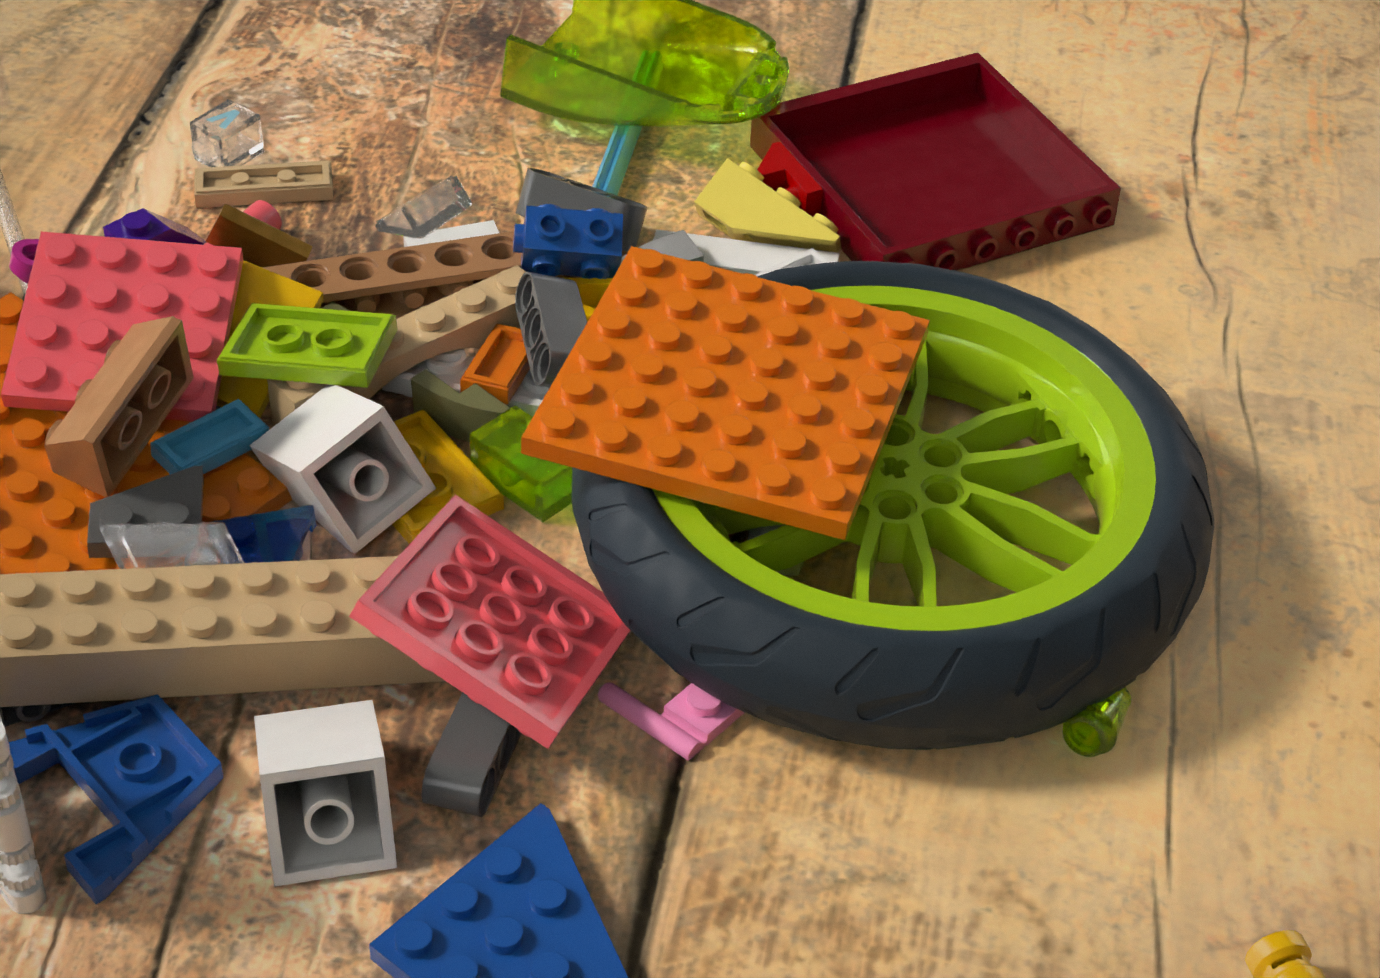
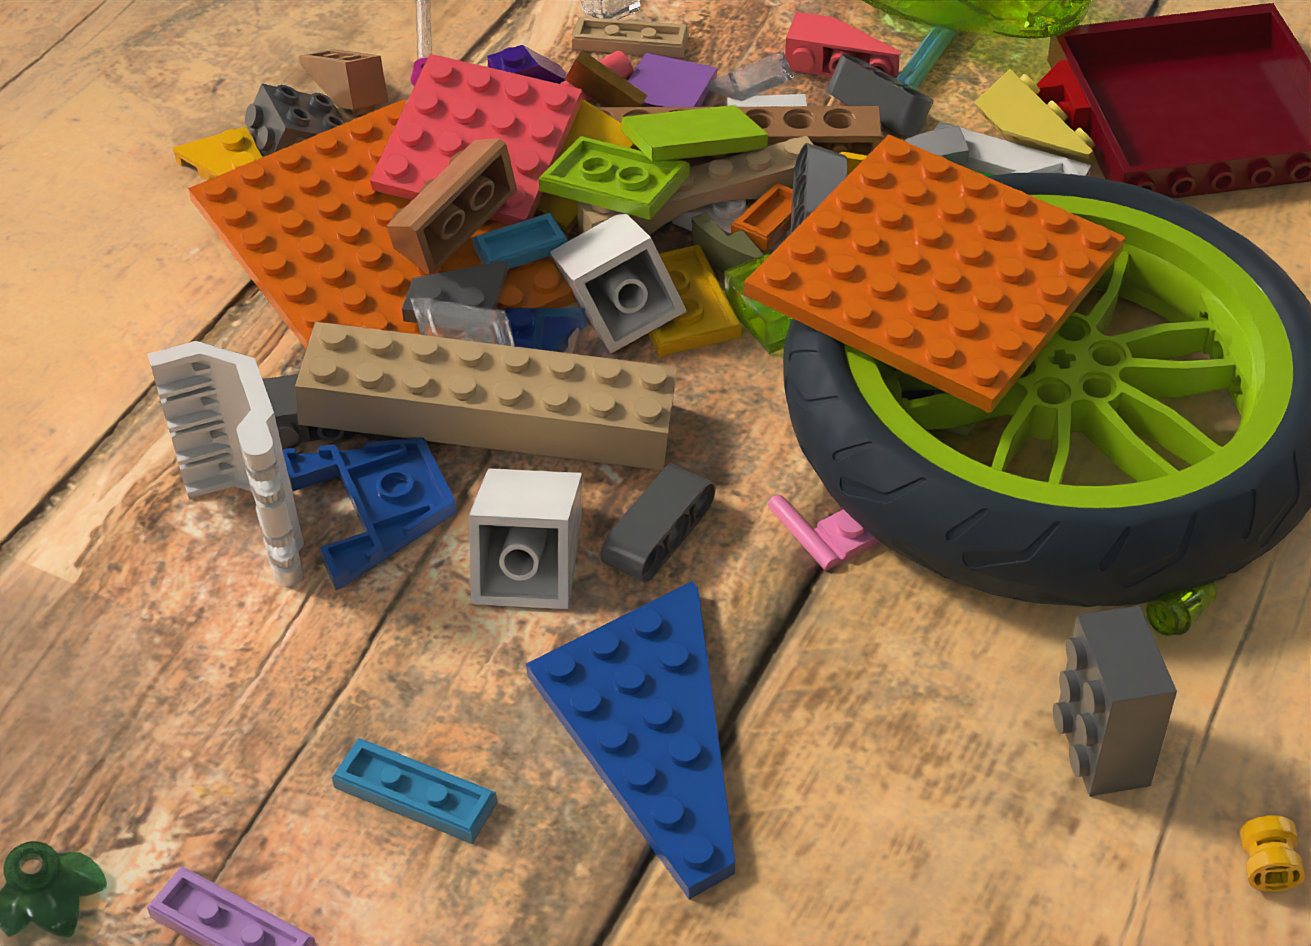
camera: 20 degrees right, 5 degrees up
(332, 226) = (672, 81): none -> medium lavender tile
(388, 280) = (694, 133): none -> lime tile
(495, 619) = (693, 426): coral plate -> none
(497, 161) = (818, 41): none -> coral slope
(569, 241) = (851, 120): blue brick -> none
(1077, 839) = (1114, 700): none -> dark grey brick

